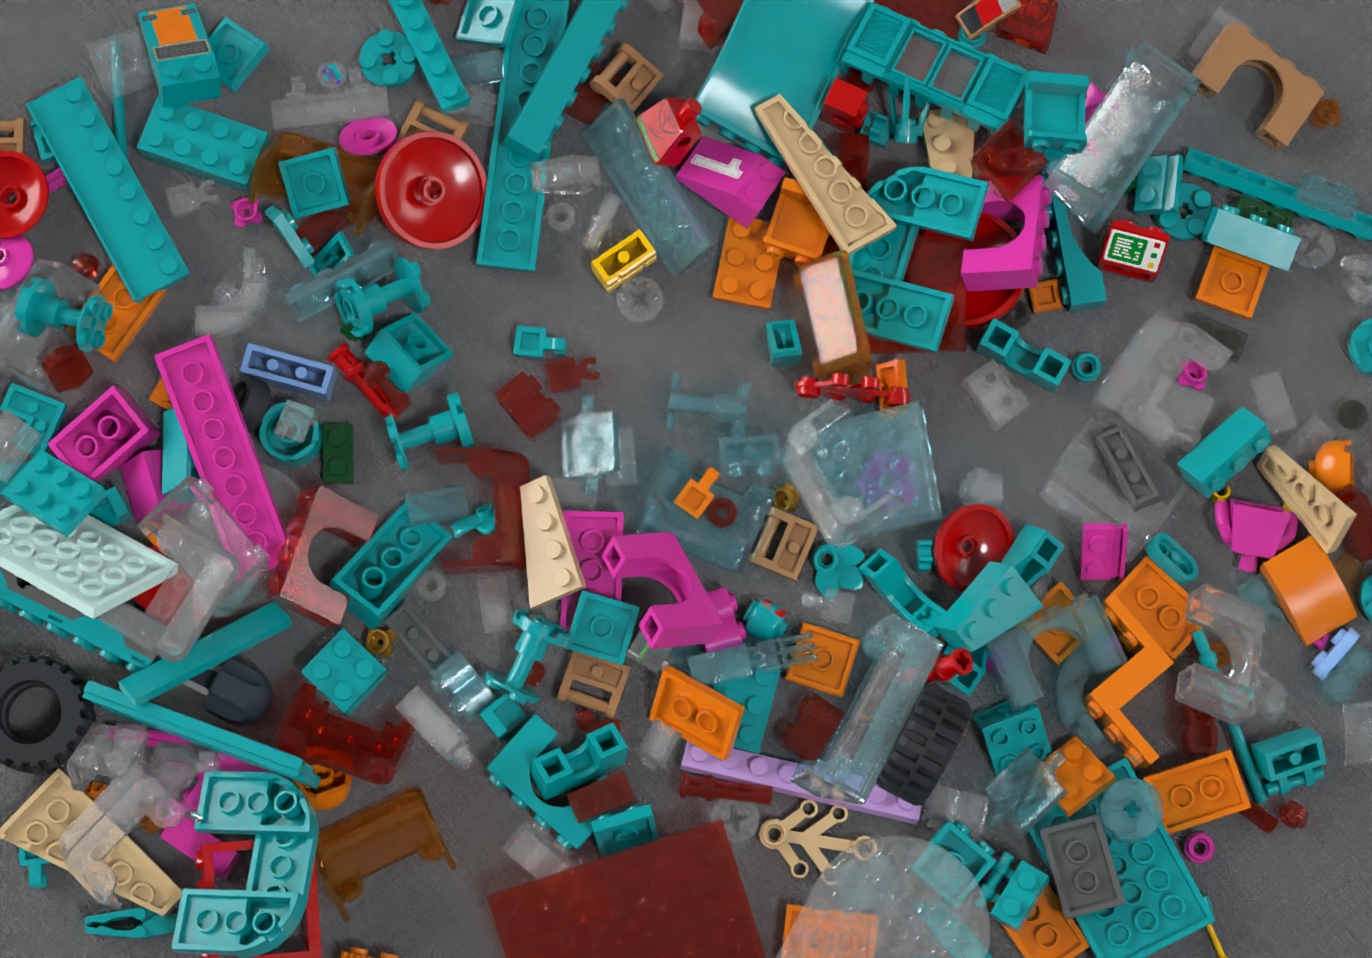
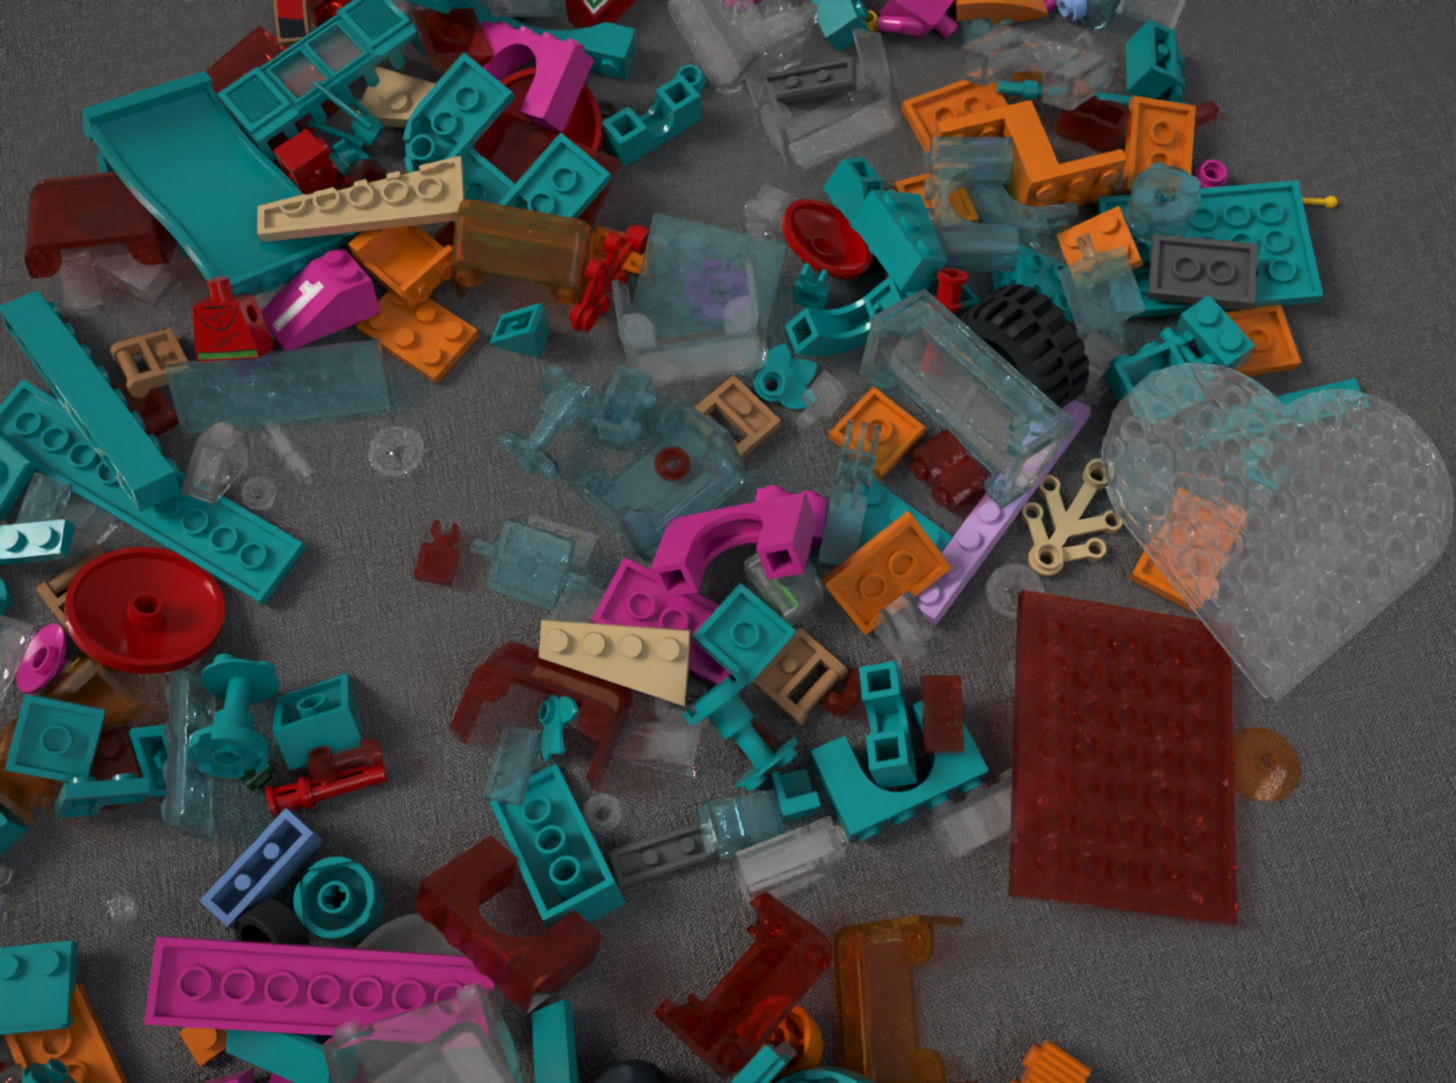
camera: 65 degrees left, 10 degrees down
(242, 219) = (35, 834): dark pink plate -> none
(243, 310) = (156, 893): clear arch -> none
(295, 421) = (326, 878): clear panel -> none
(338, 454) = (392, 856): dark green plate -> none
(345, 672) = (660, 959): teal piece -> none
(372, 642) = (644, 912): pearl gold plate -> none
(442, 428) = (425, 717): teal piece -> none
(528, 406) = (450, 615): clear red brick -> none
(533, 342) = (383, 579): teal plate -> none
(624, 261) = (345, 444): yellow brick -> none
(624, 829) = (987, 712): teal plate -> none
(696, 496) = (641, 480): orange plate -> none
(711, 788) = (972, 599): clear red pin -> none
(765, 620) = (809, 469): teal head -> none
(786, 498) = (691, 386): pearl gold plate -> none
(995, 395) = (677, 165): clear brick -> none
(1045, 297) = (603, 85): orange tile -> none
(1103, 551) = (883, 131): dark pink plate -> none
(1172, 558) = (917, 81): teal plate -> none
(1293, 815) = (1209, 85): clear red plate -> none

